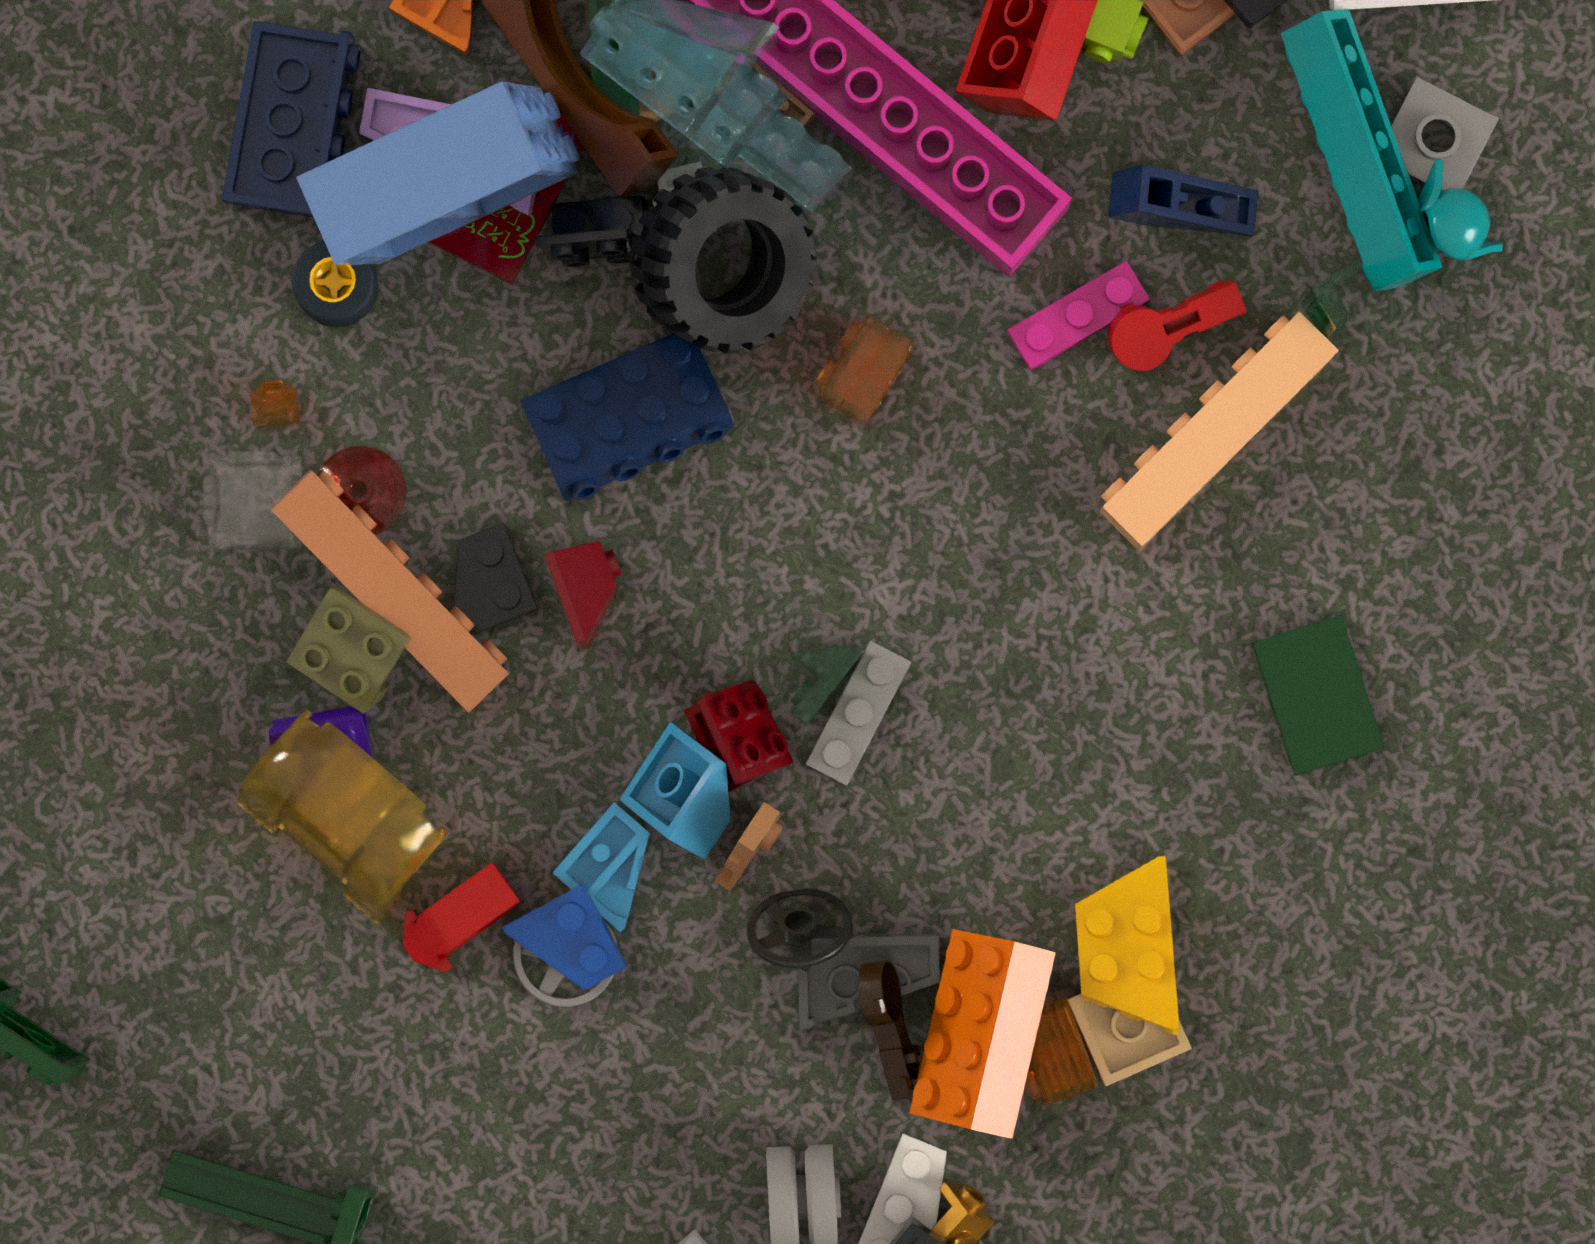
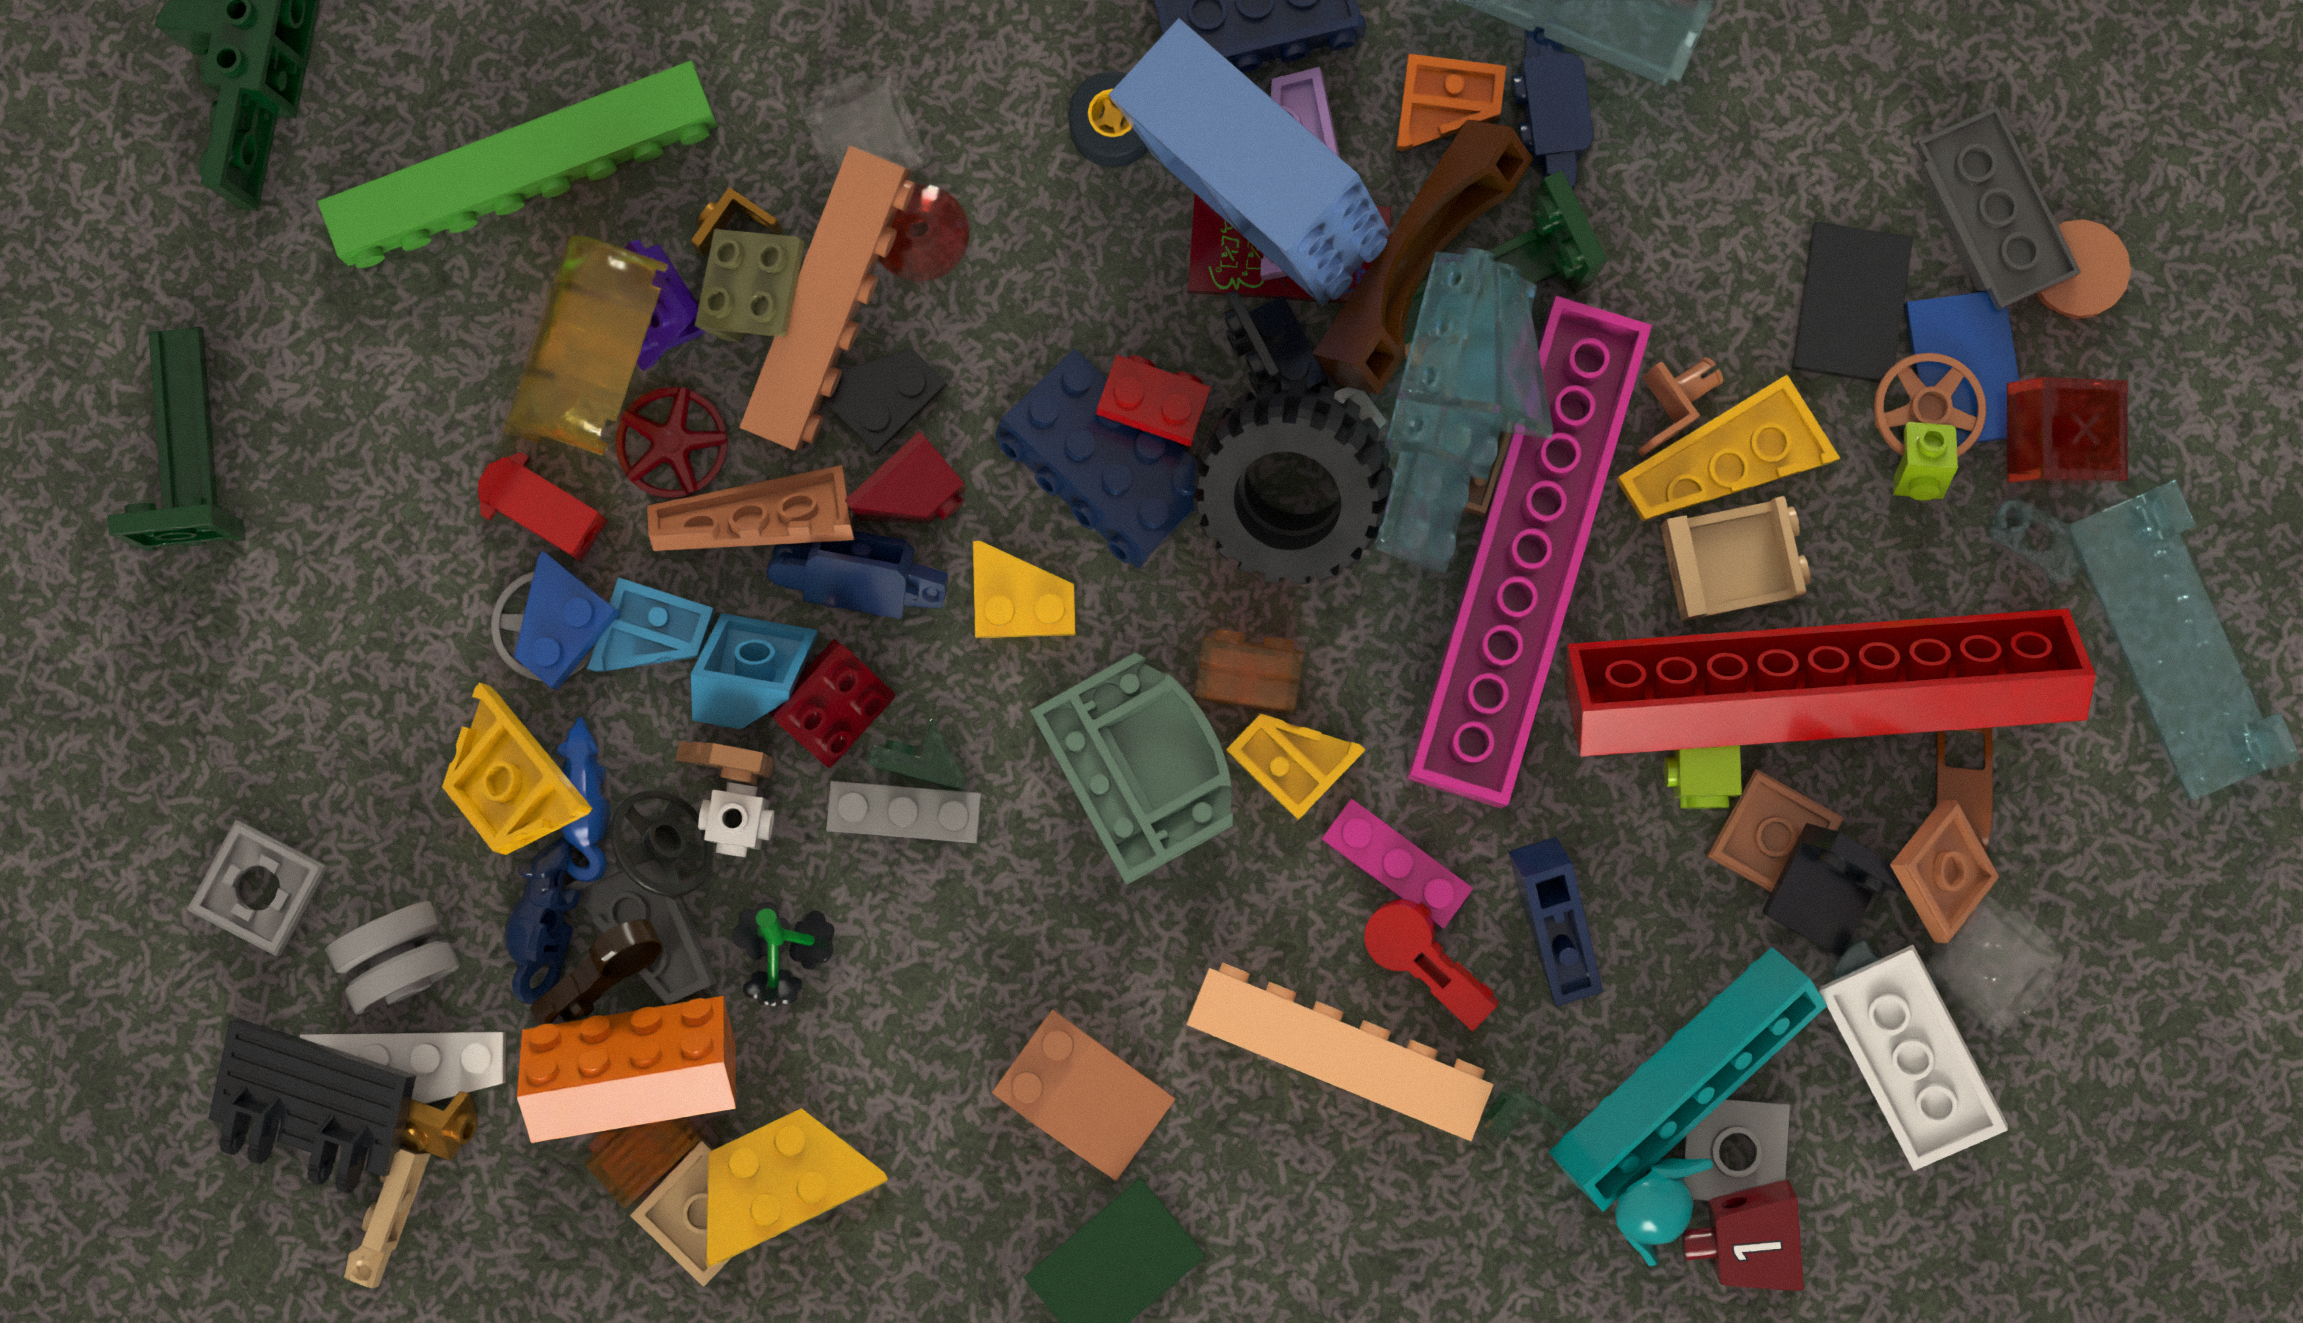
camera: 65 degrees right, 0 degrees up
(150, 811) = (518, 165): none -> bright green brick
(270, 658) = (719, 214): none -> pearl gold bracket
(274, 404) = (969, 113): clear orange plate -> none
(453, 779) = (671, 442): none -> dark red wheel
(550, 723) = (762, 513): none -> nougat wing
(596, 349) = (1154, 399): none -> red bracket
(636, 665) = (859, 574): none -> dark blue hinge
(689, 1037) = (508, 780): none -> yellow wing
(715, 538) = (1018, 597): none -> yellow wing
(738, 983) = (587, 777): none -> blue animal
(798, 874) = (755, 824): none -> white brick
(822, 1066) = (536, 924): none -> dark blue animal
(903, 494) = (1140, 763): none -> sand green slope
(913, 871) = (767, 934): none -> black plant
(955, 365) = (1292, 760): none -> yellow wing
(1162, 660) = (1083, 1095): none -> nougat slope
(1514, 154) = (1752, 1238): none -> dark red torso

